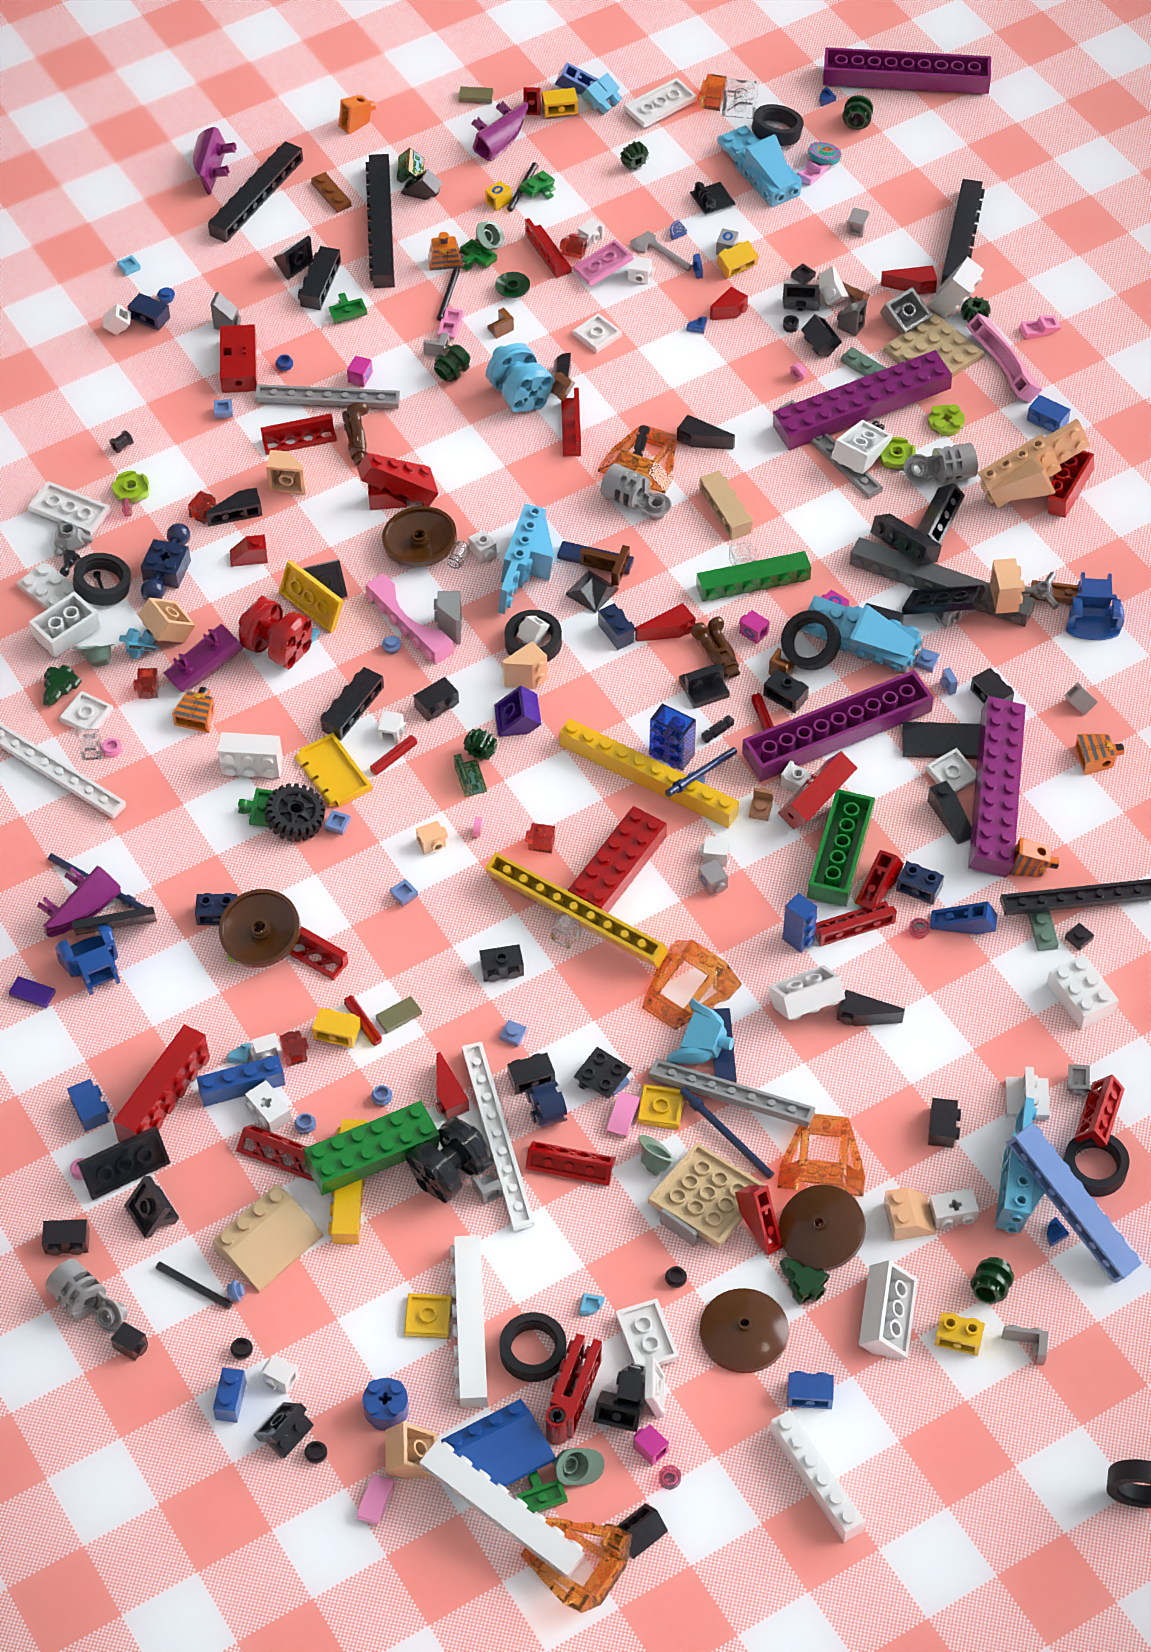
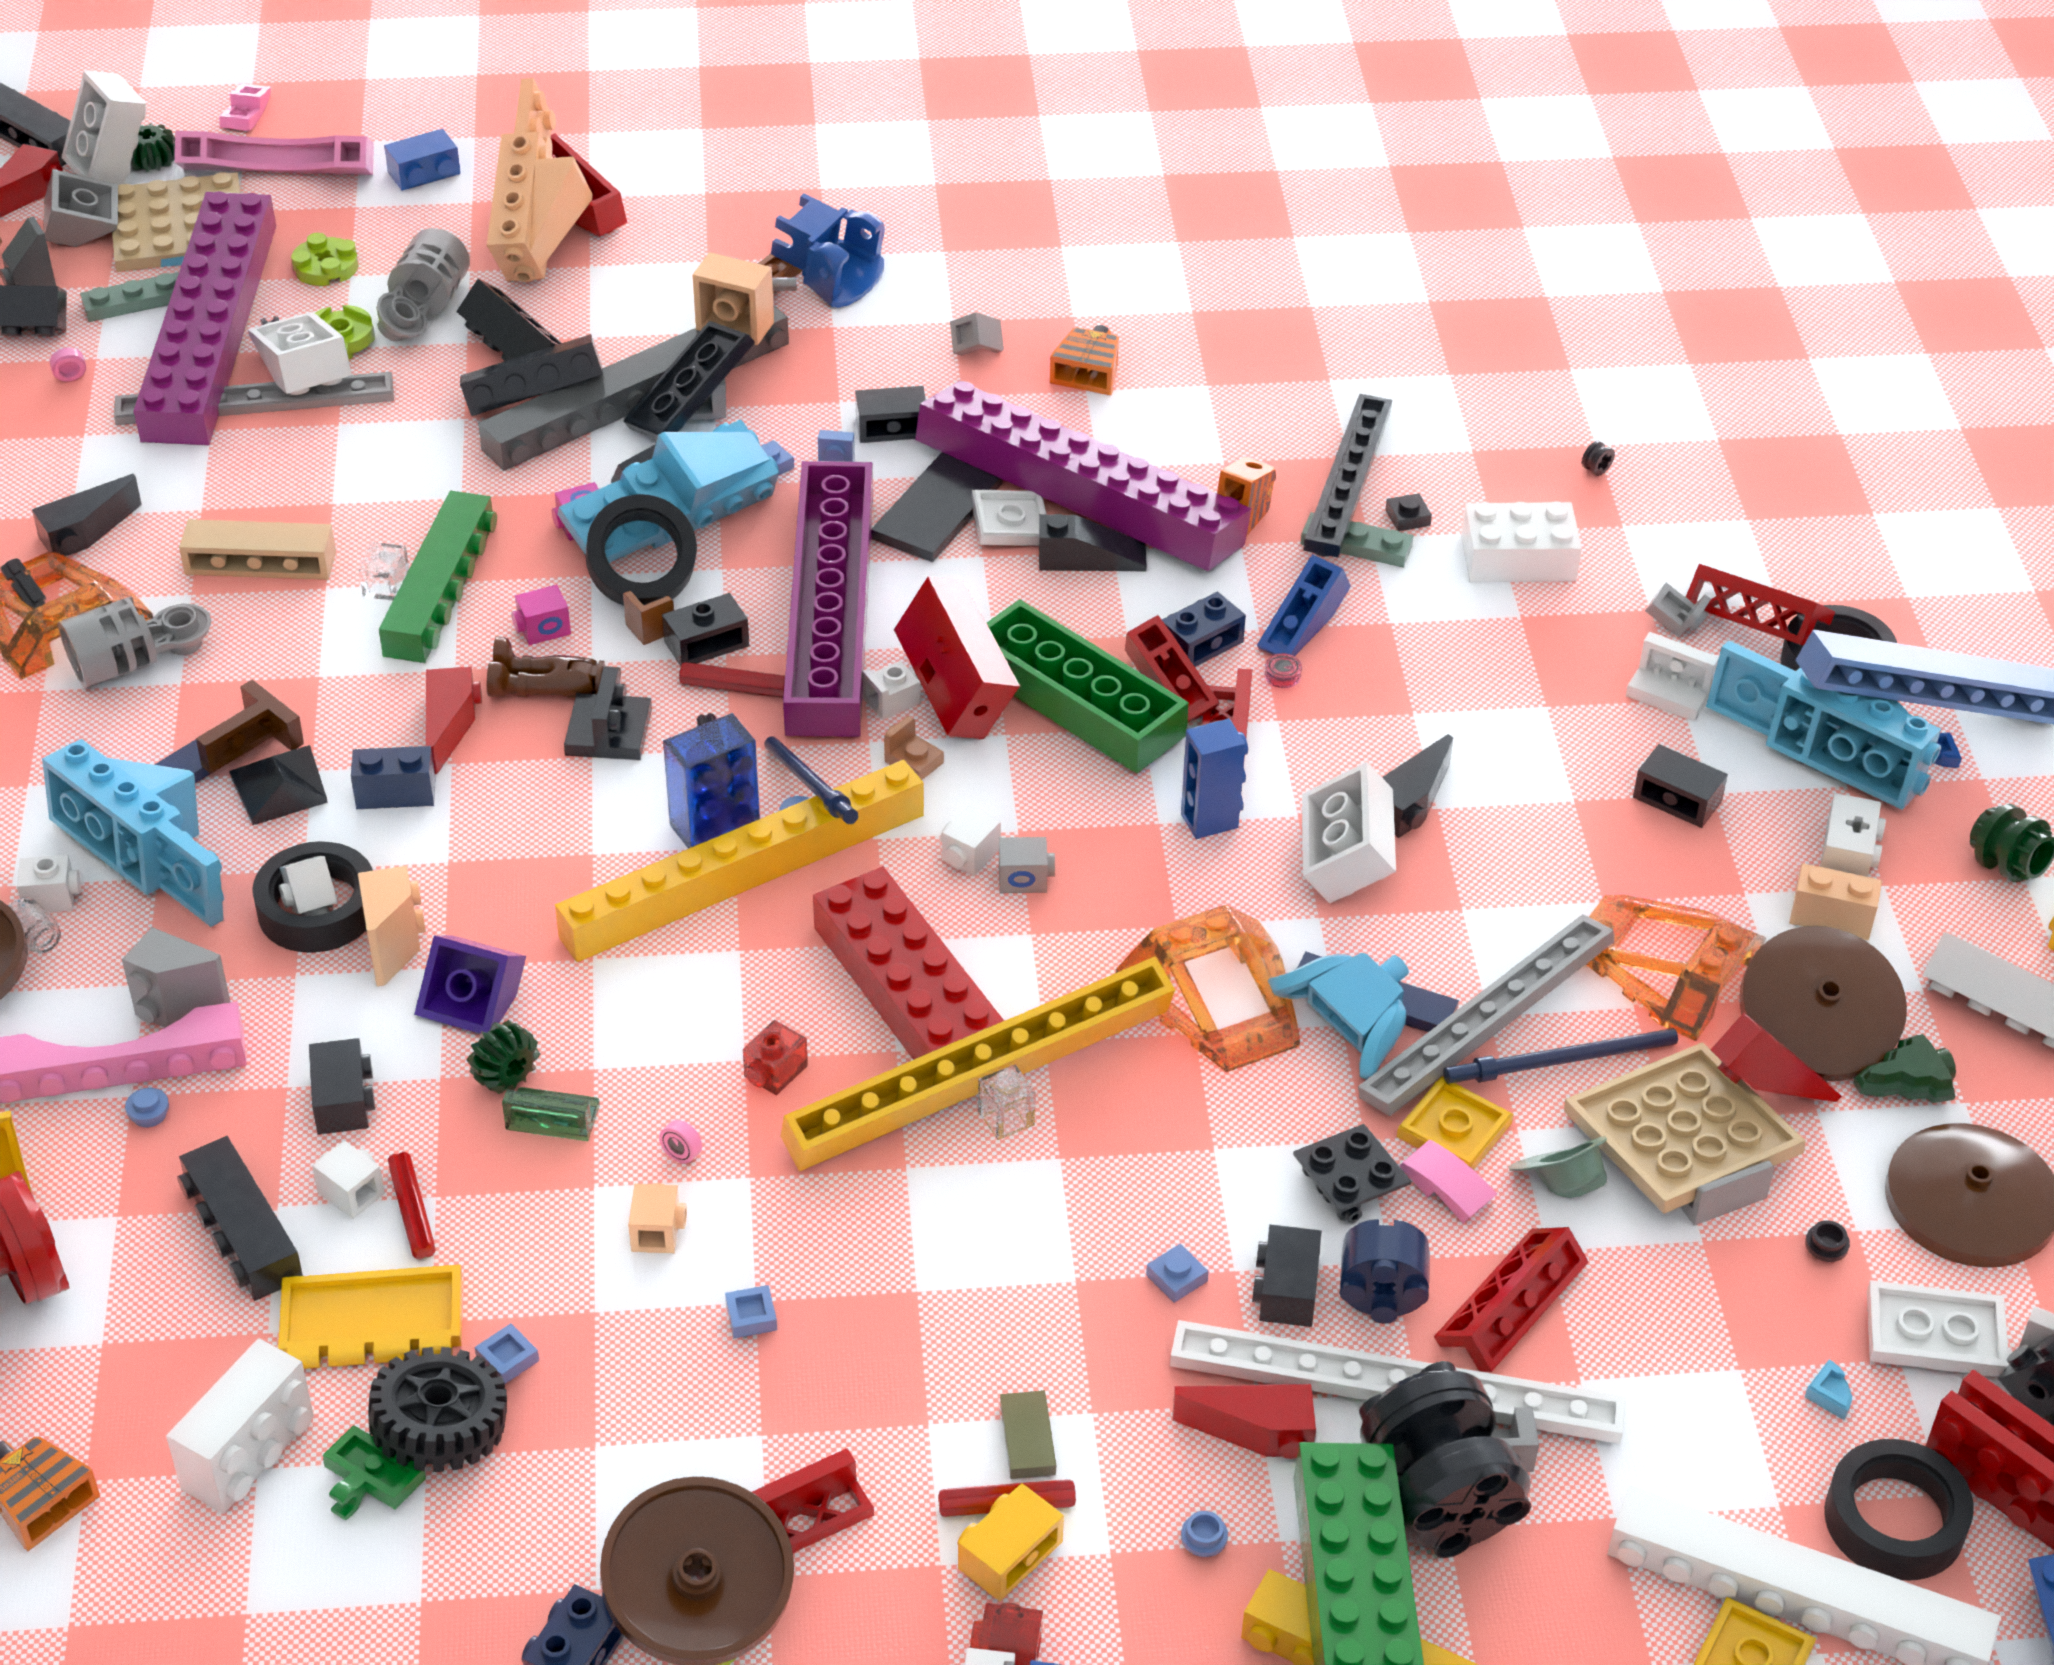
camera: 65 degrees left, 10 degrees down
(501, 963) = (1017, 1223): black brick -> none

